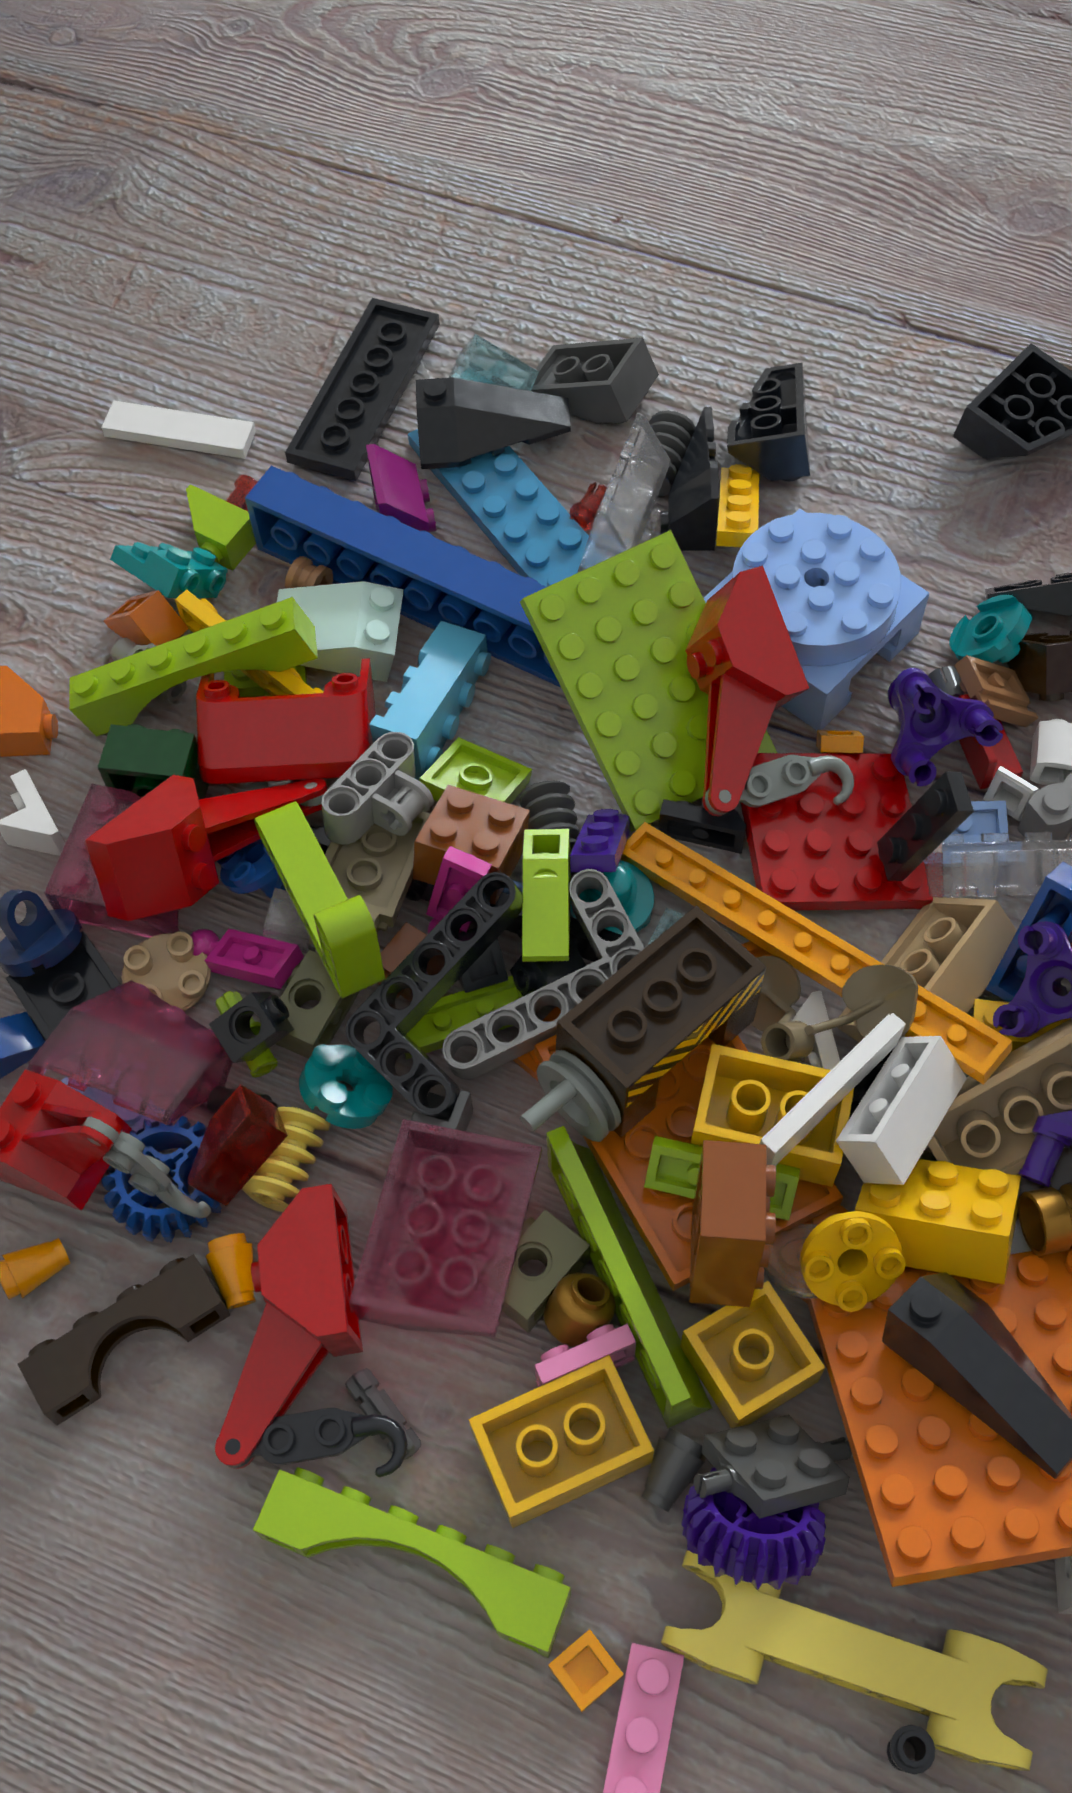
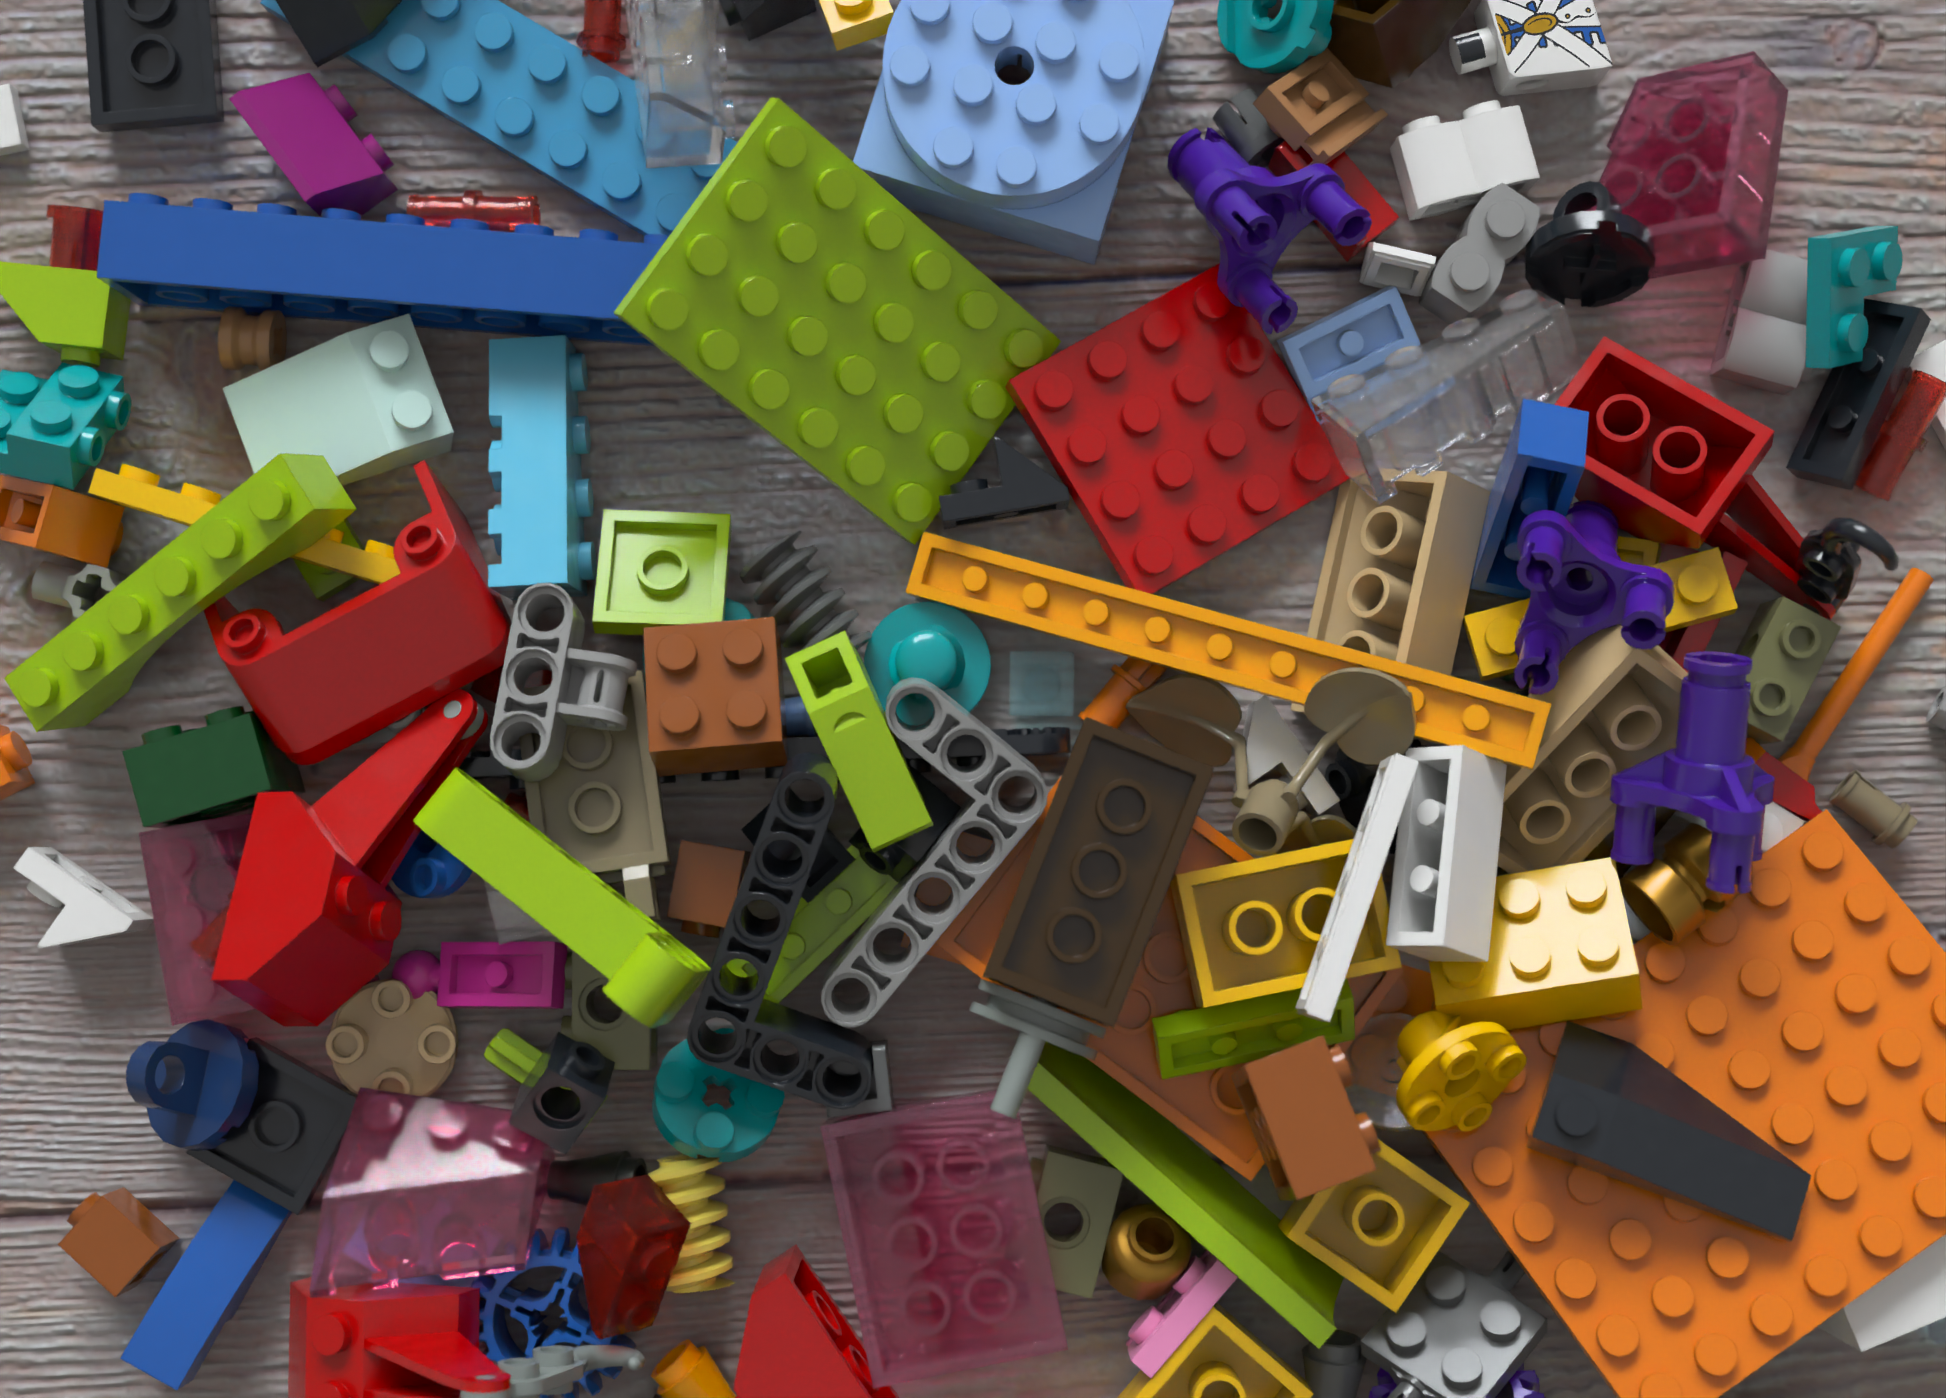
camera: 25 degrees left, 25 degrees up
(455, 878) = (736, 786): dark pink plate -> none
(601, 841) = (887, 610): dark purple plate -> none
(749, 671) = (990, 279): red slope -> none
(839, 741) = (1134, 281): light orange plate -> none
(925, 826) = (1321, 418): black plate -> none

